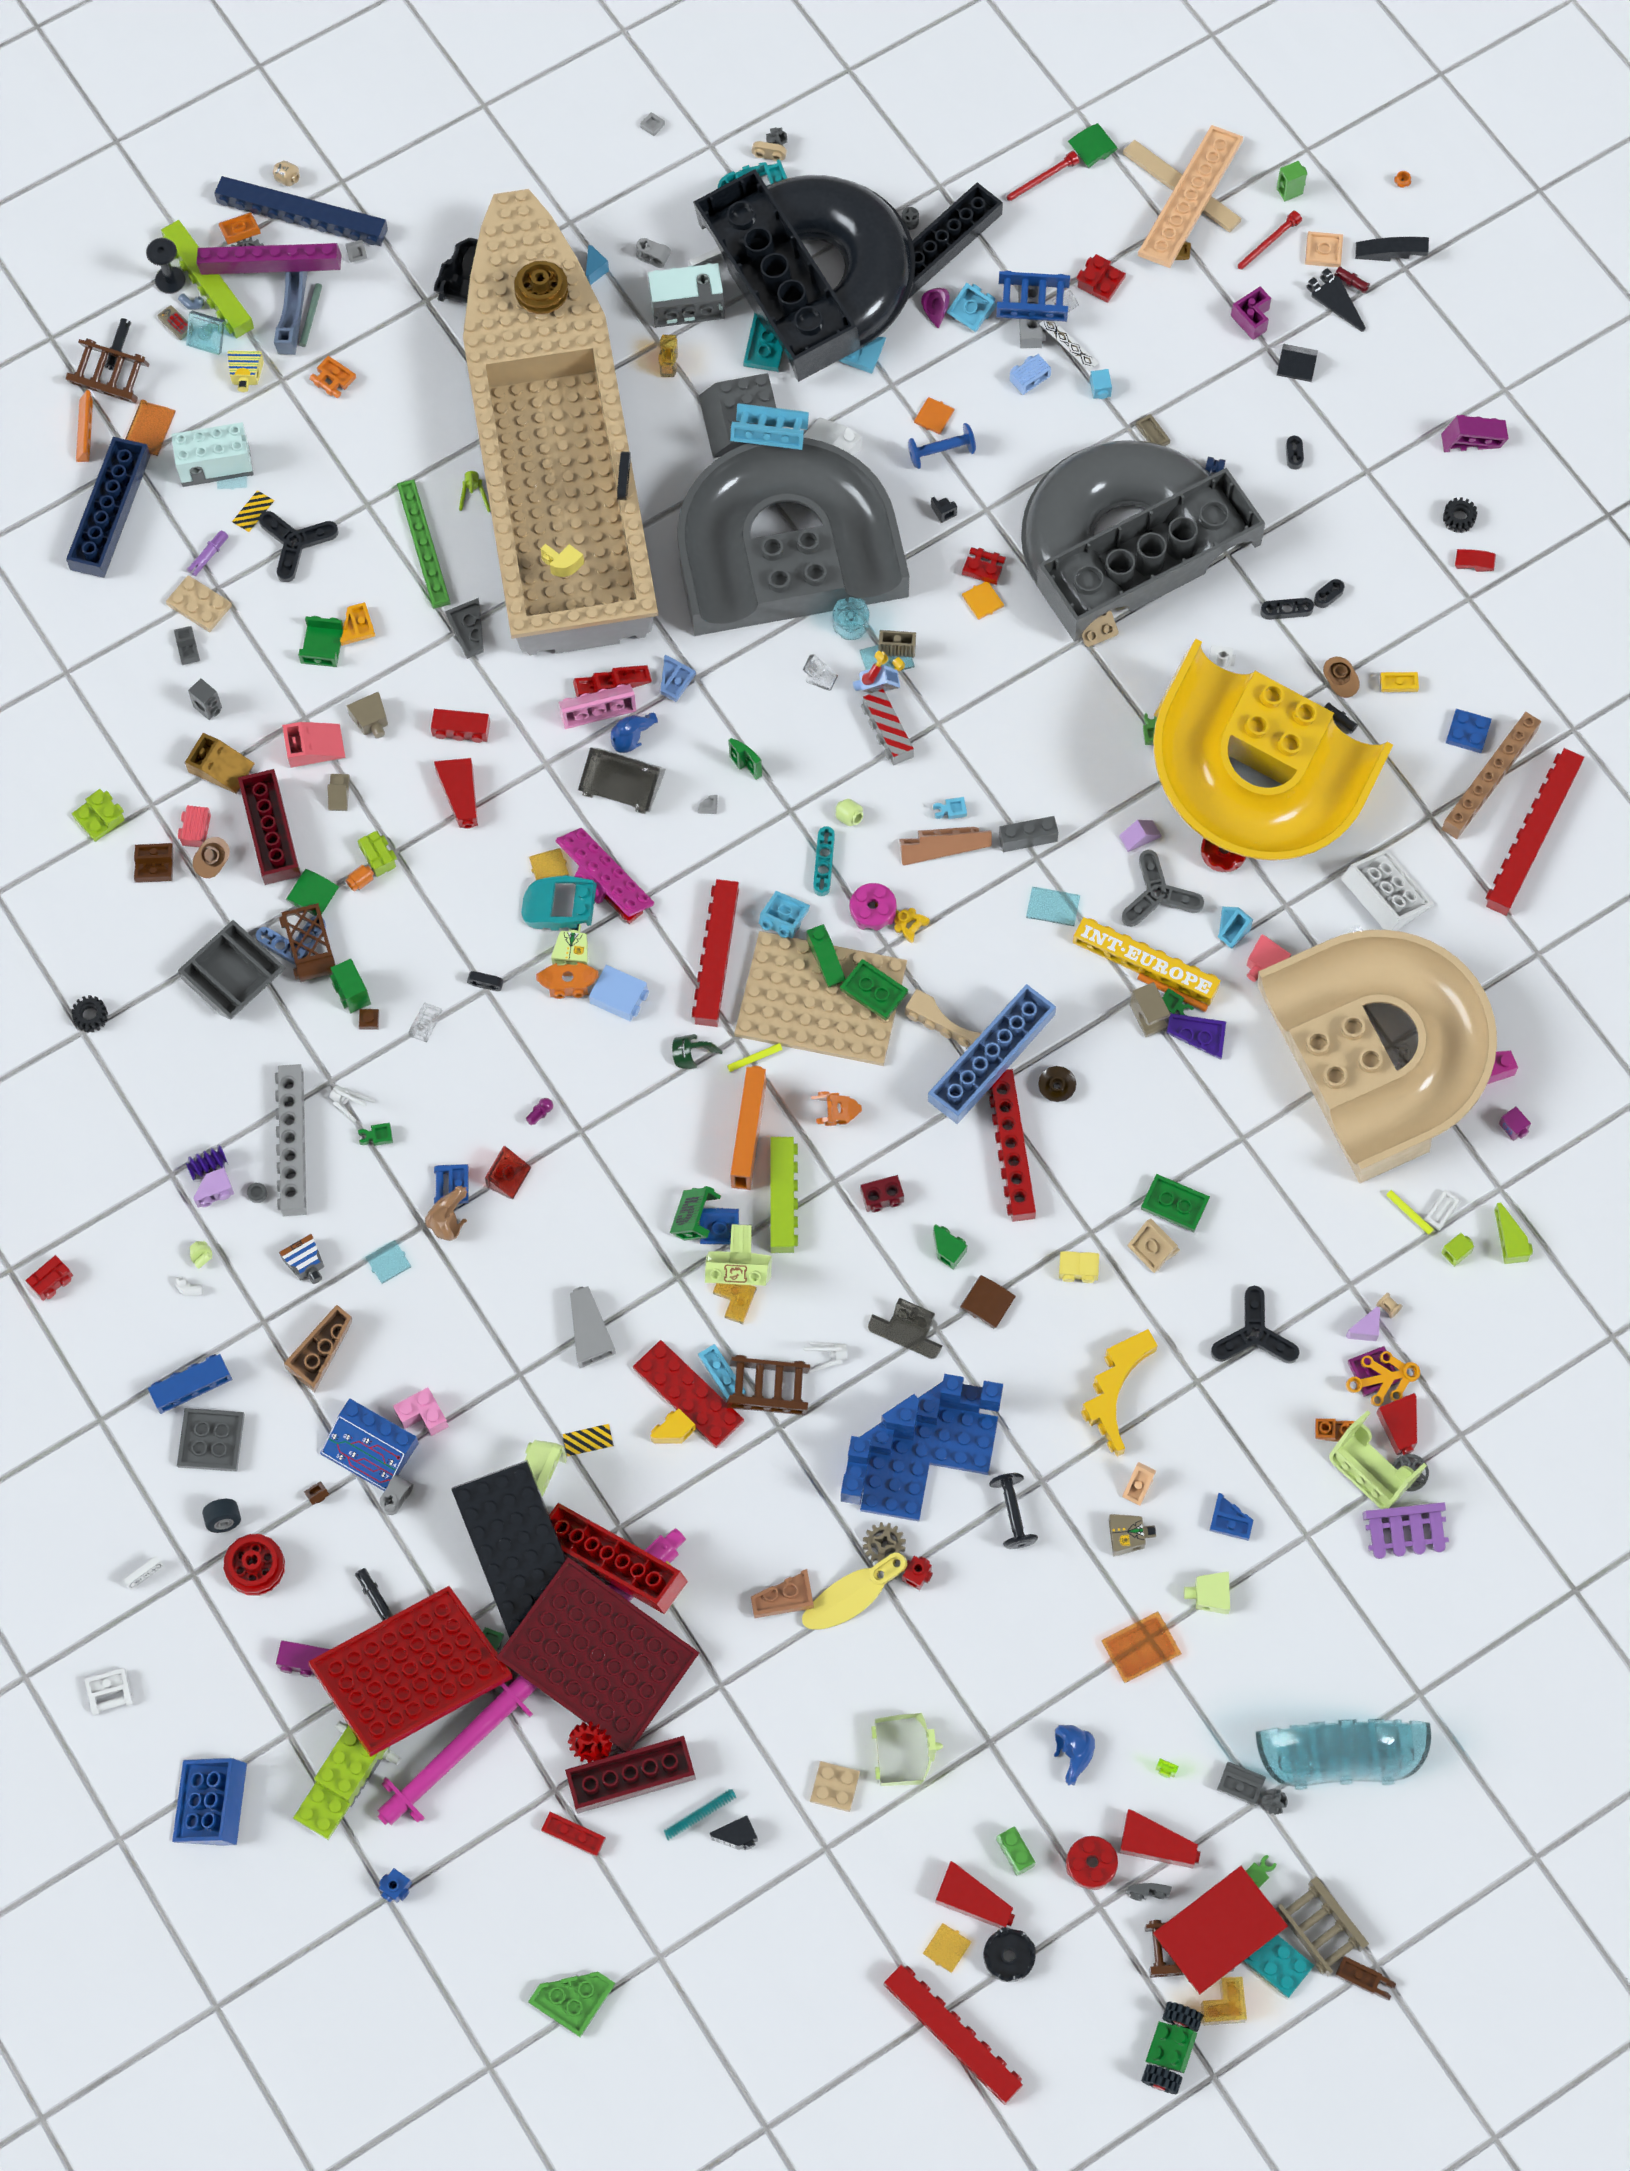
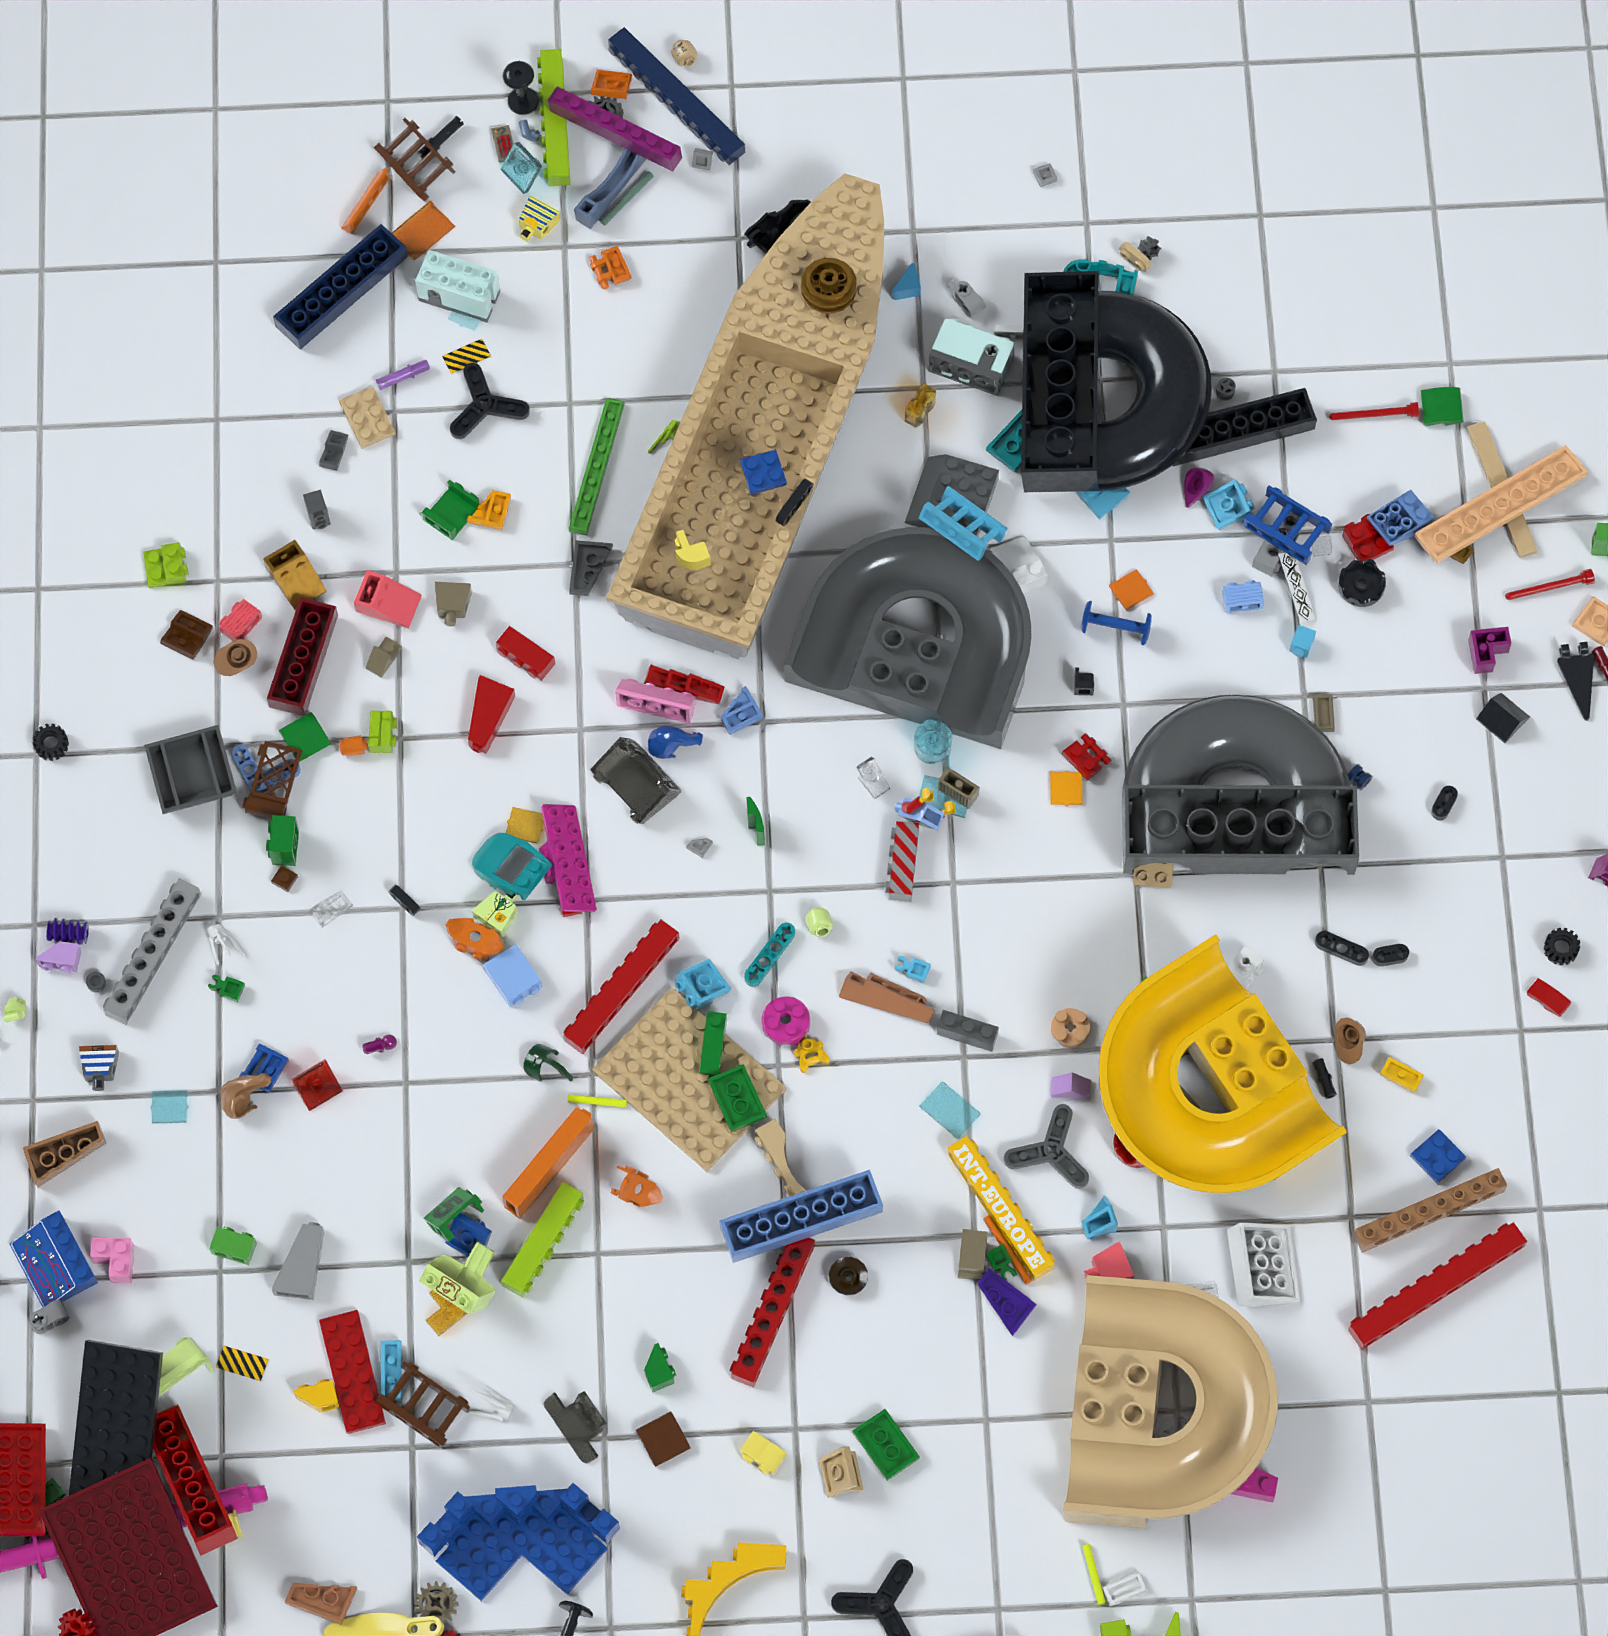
camera: 30 degrees right, 0 degrees up
(519, 1345) = (233, 1245): none -> bright green brick
(580, 465) = (763, 472): none -> blue plate
(880, 1189) = (632, 1283): dark red brick -> none
(1105, 778) = (1062, 1034): none -> light nougat plate
(1119, 245) = (1401, 518): none -> medium blue slope
(1119, 304) = (1362, 571): none -> black plate
(1515, 1124) = (1241, 1548): magenta brick -> none

